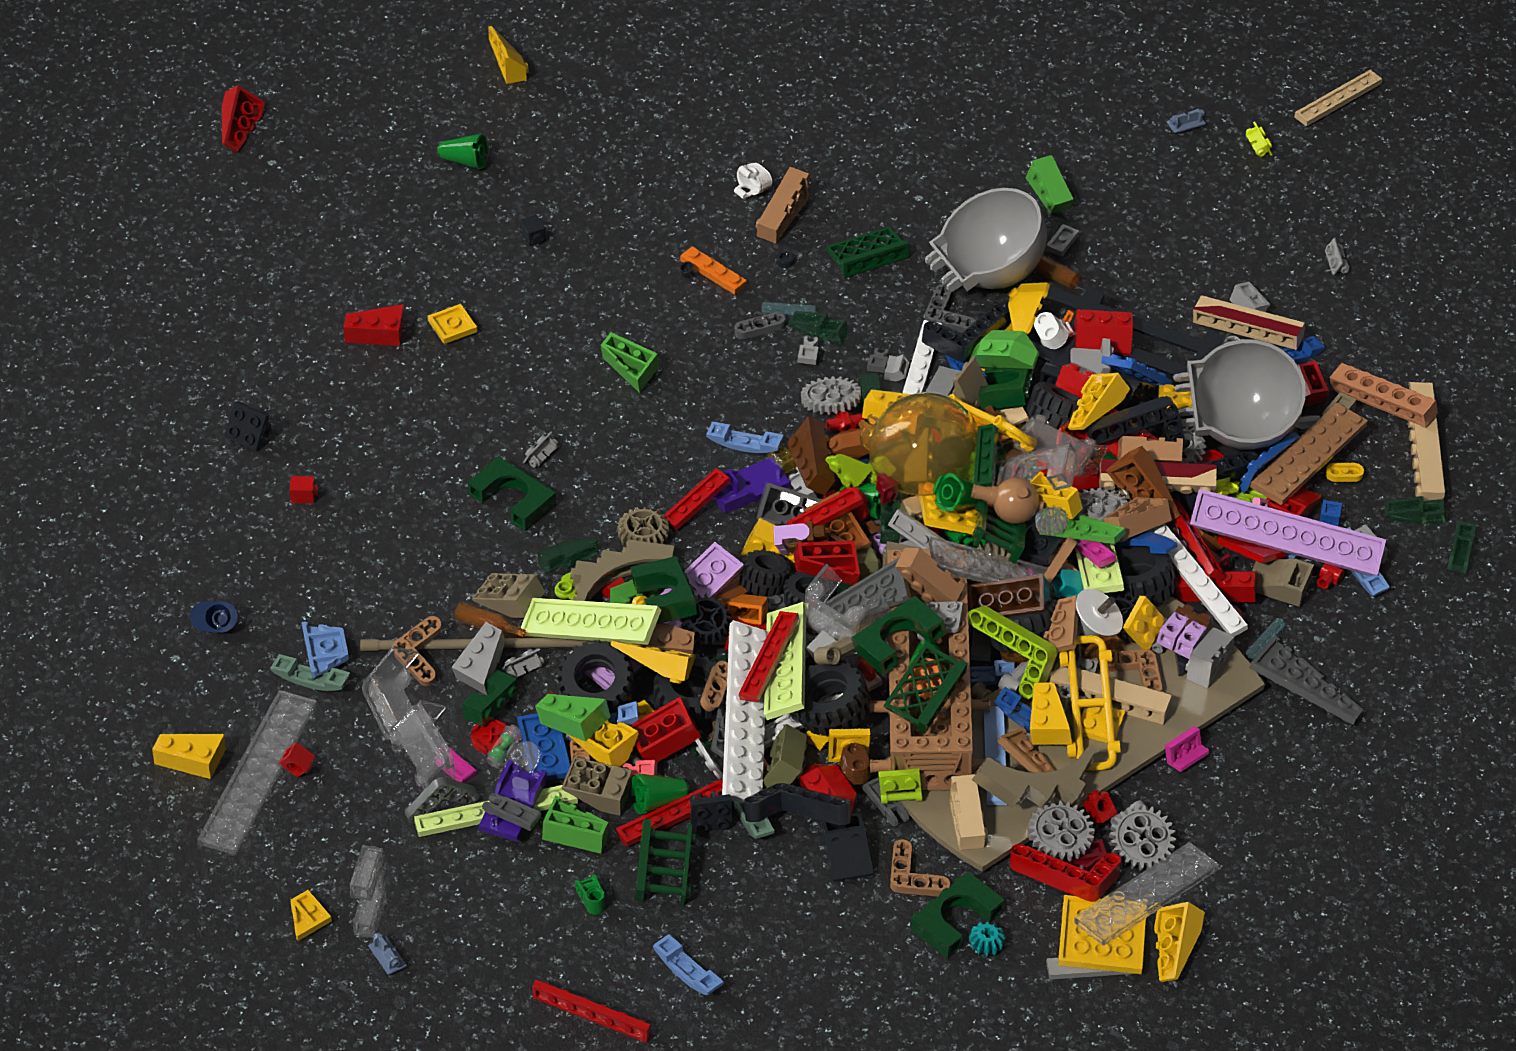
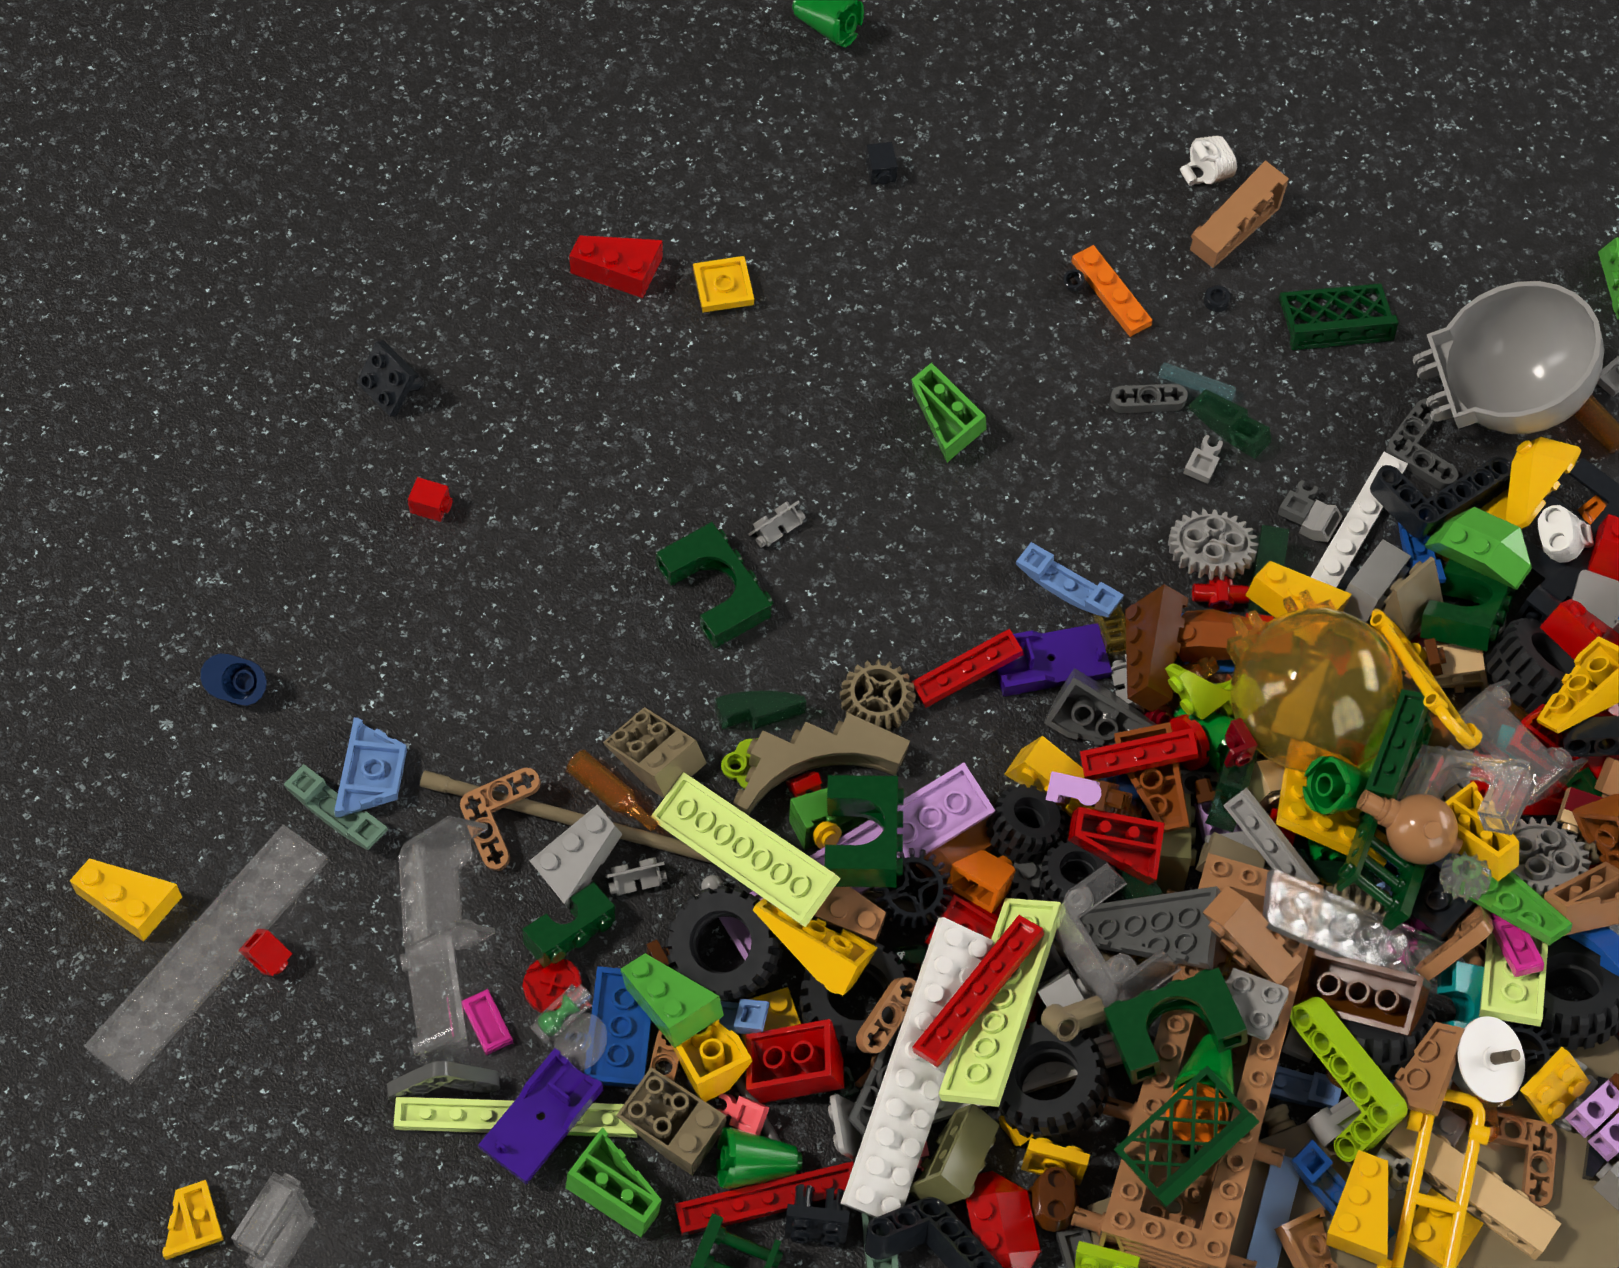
camera: 15 degrees right, 15 degrees up
(512, 811) = (531, 1142): dark grey hinge -> none

